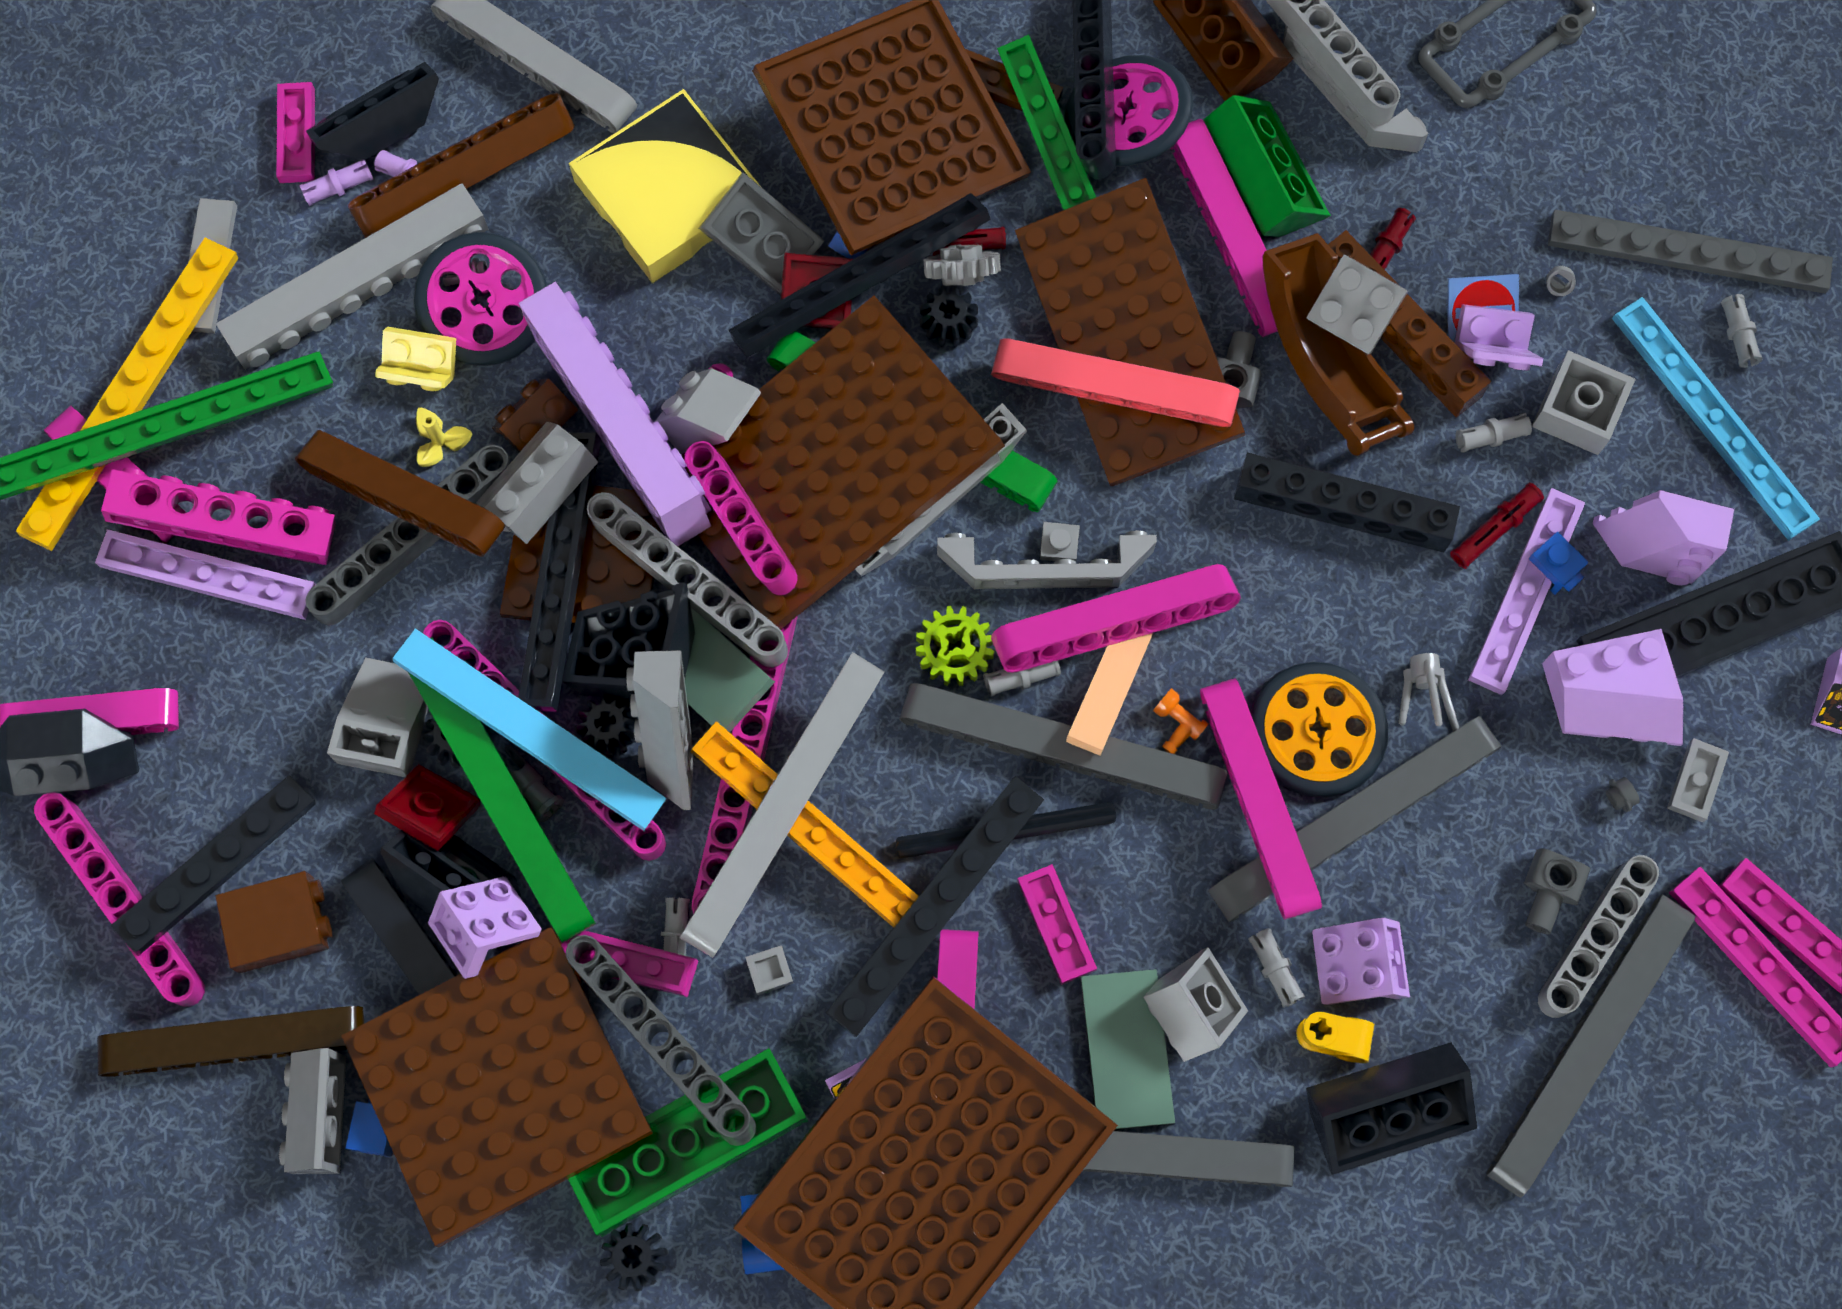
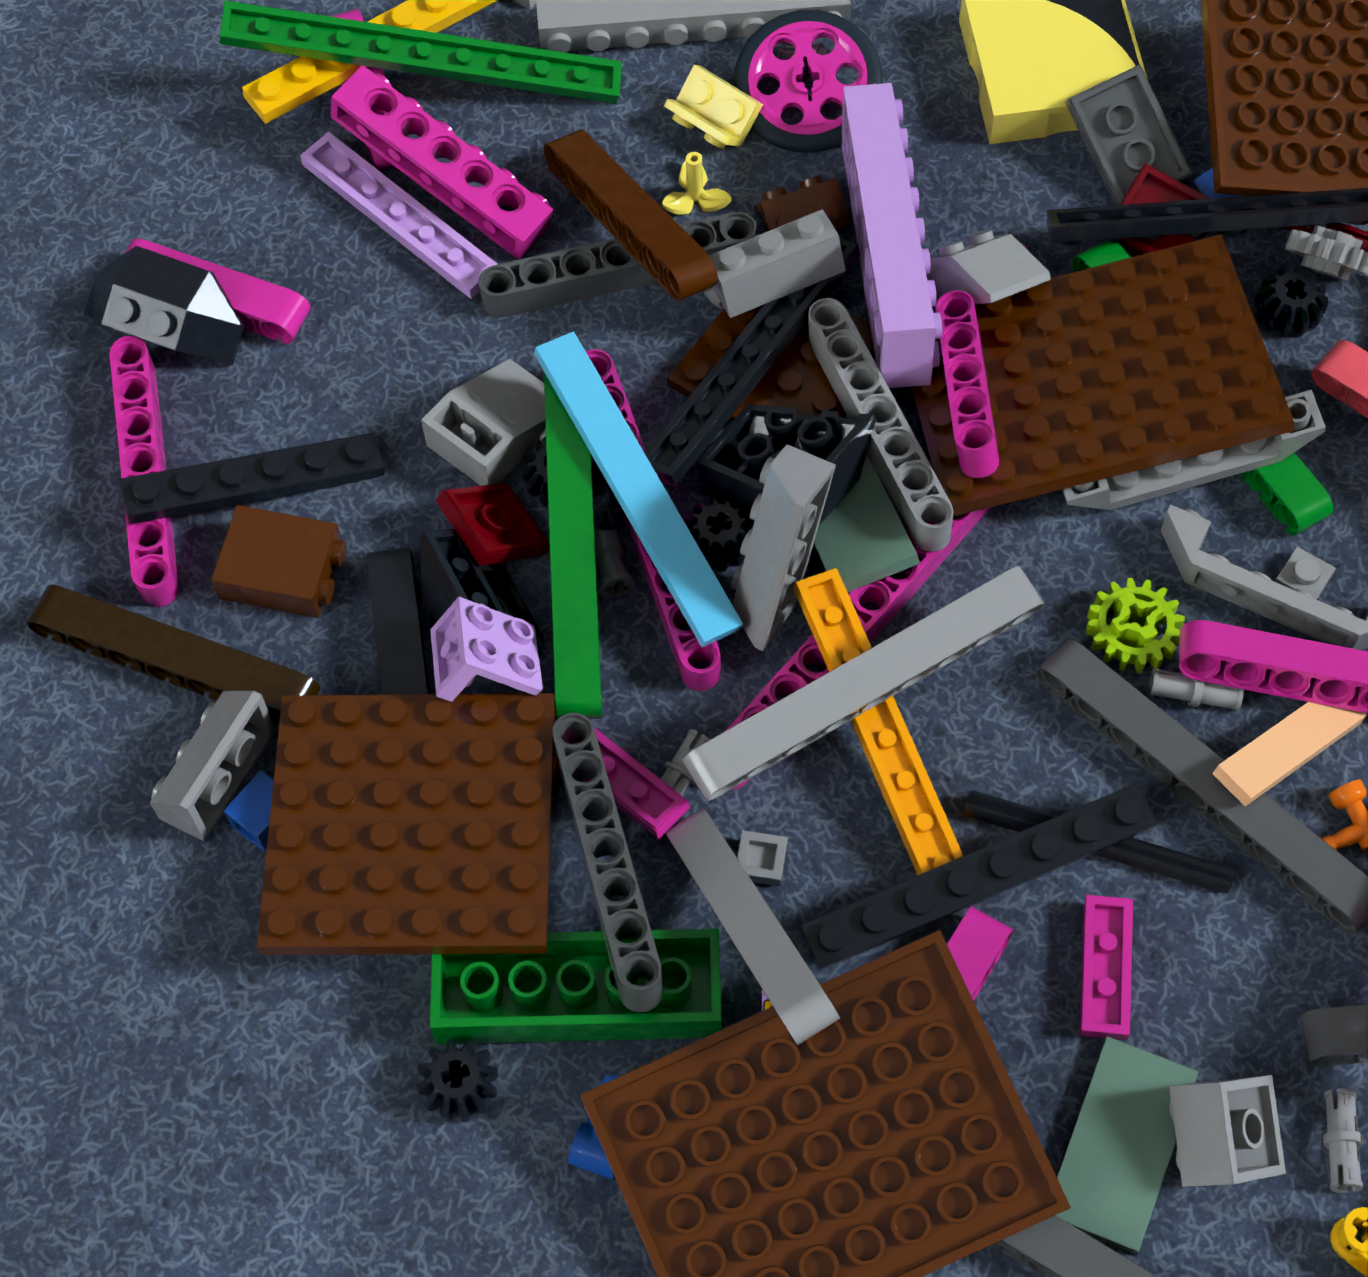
camera: 30 degrees right, 10 degrees down
(793, 1037) = (753, 927): none -> light grey beam

